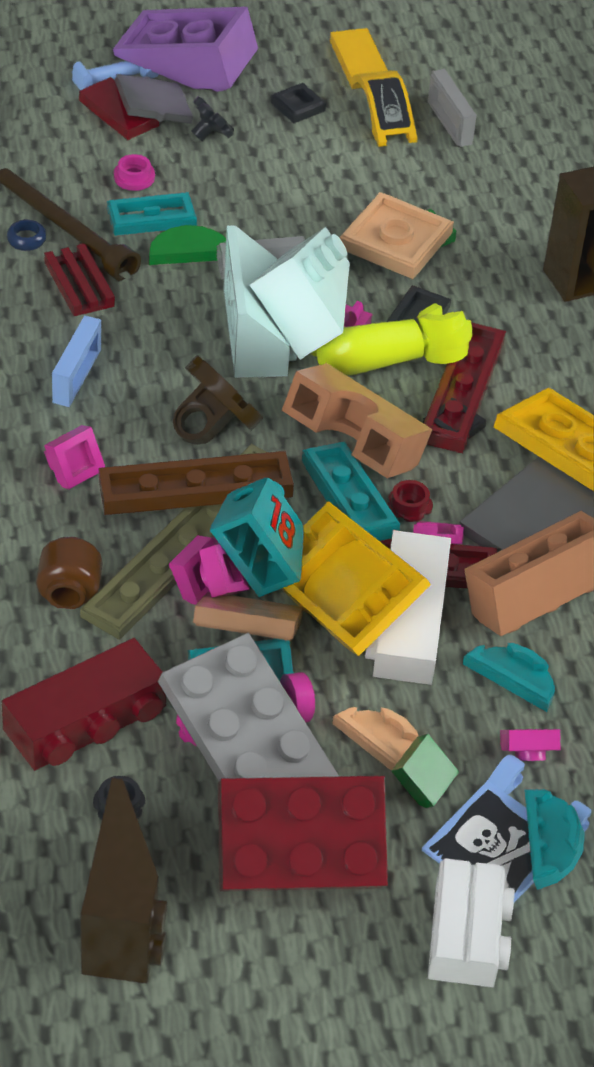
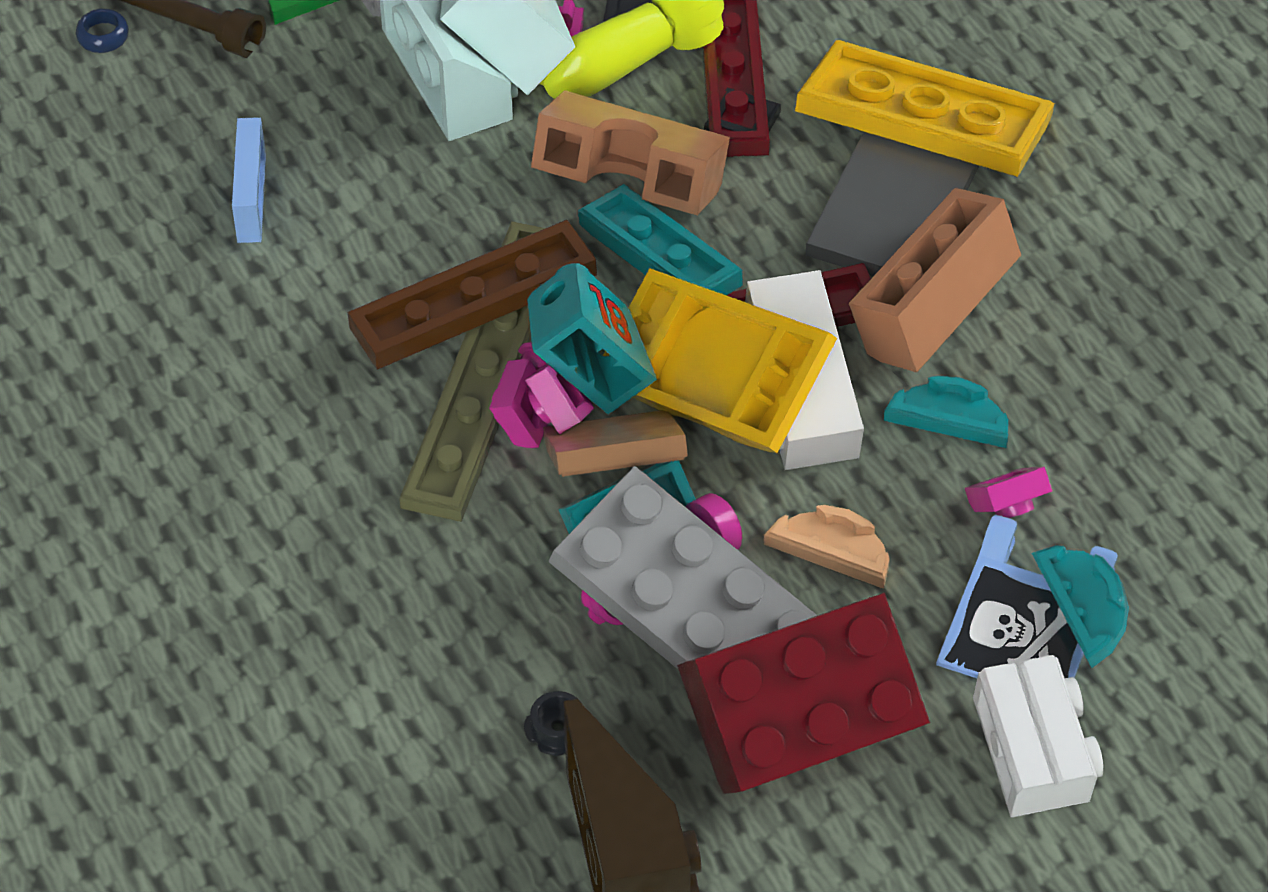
camera: 15 degrees left, 5 degrees up
(69, 572) = (365, 456): reddish brown head -> none
(70, 259) = (224, 66): dark red tile -> none
(74, 456) = (303, 306): dark pink tile -> none
(83, 704) = (463, 618): dark red brick -> none
(215, 399) = (448, 177): dark brown tile -> none
(410, 500) = (736, 224): dark red plate -> none
(425, 771) = (903, 568): tile -> none
(447, 530) = (786, 263): dark pink tile -> none

